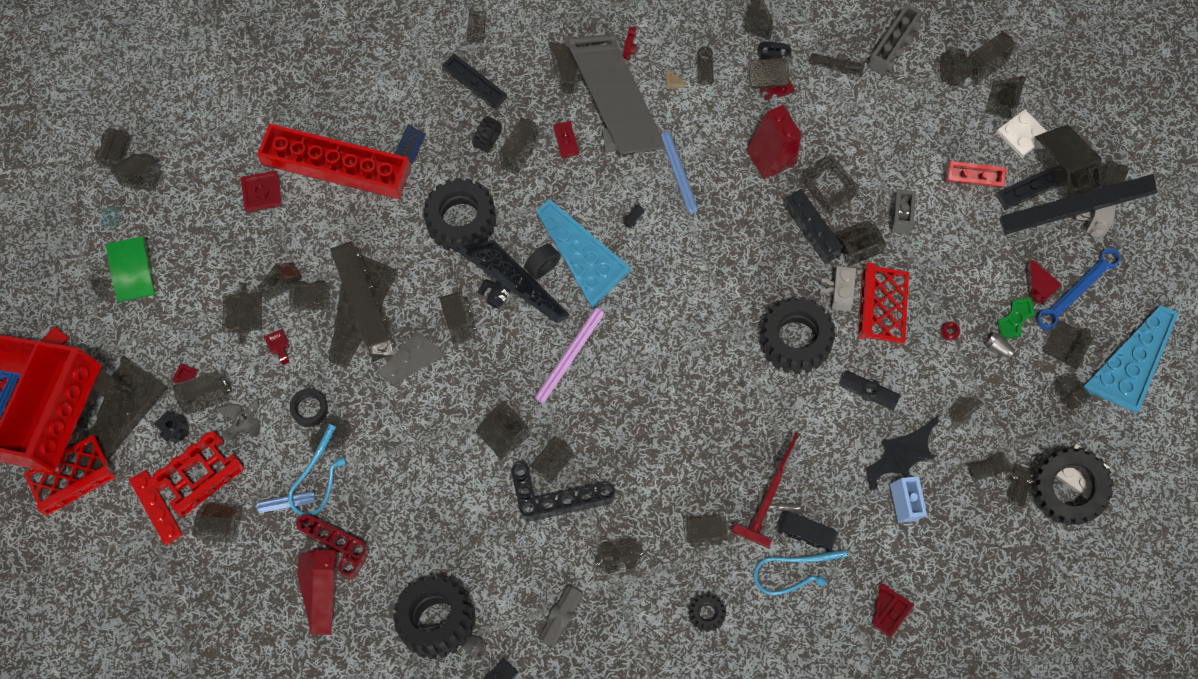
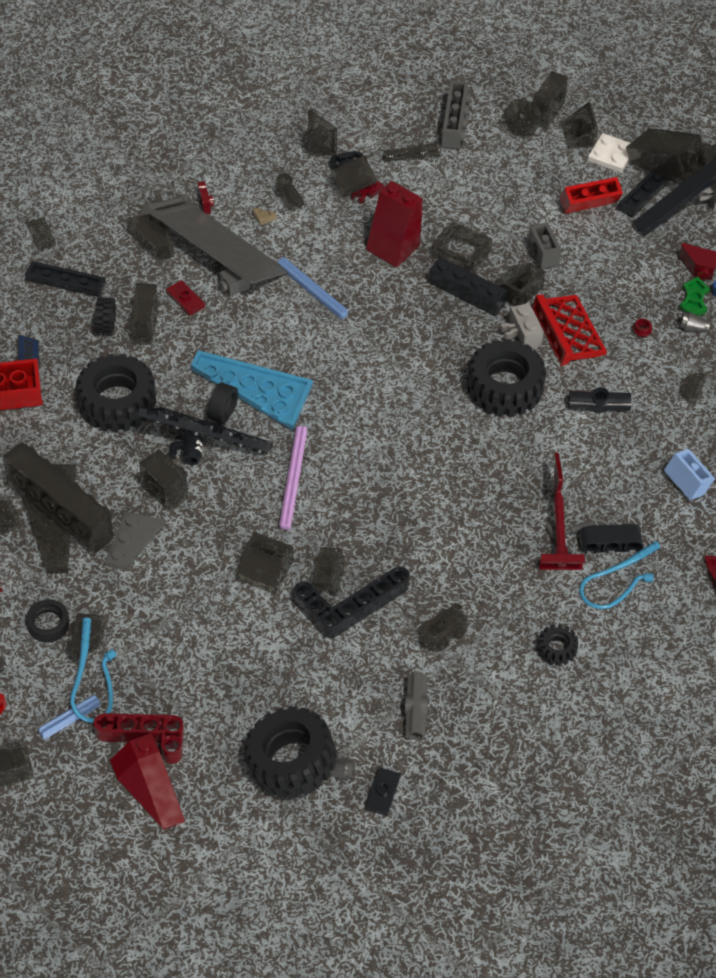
camera: 30 degrees left, 15 degrees down
(630, 219) = (288, 342): black pin -> none
(705, 529) = (514, 572): clear smoke brick -> none
(902, 454) = (658, 444): black animal -> none

